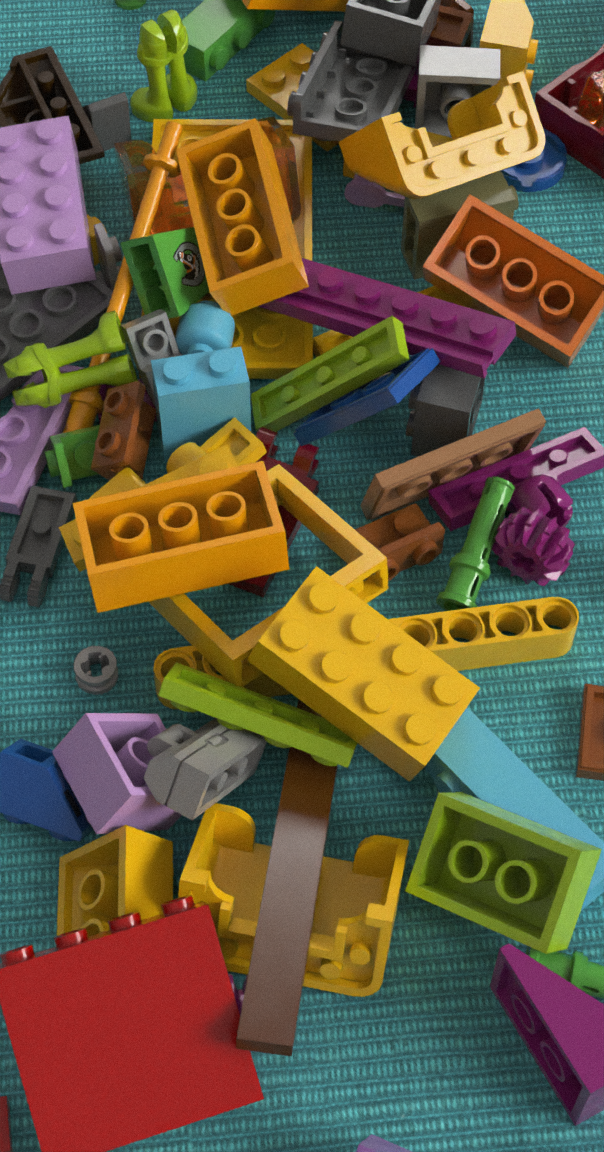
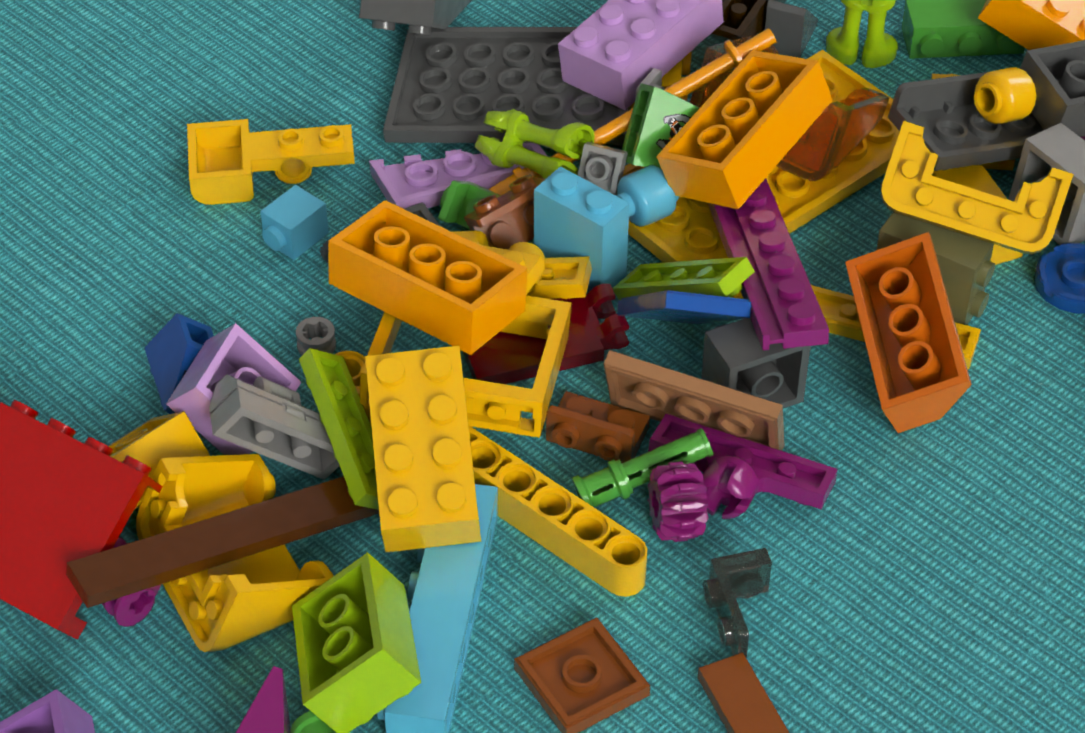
camera: 50 degrees right, 10 degrees down
(360, 52) = (1005, 95): none -> yellow head

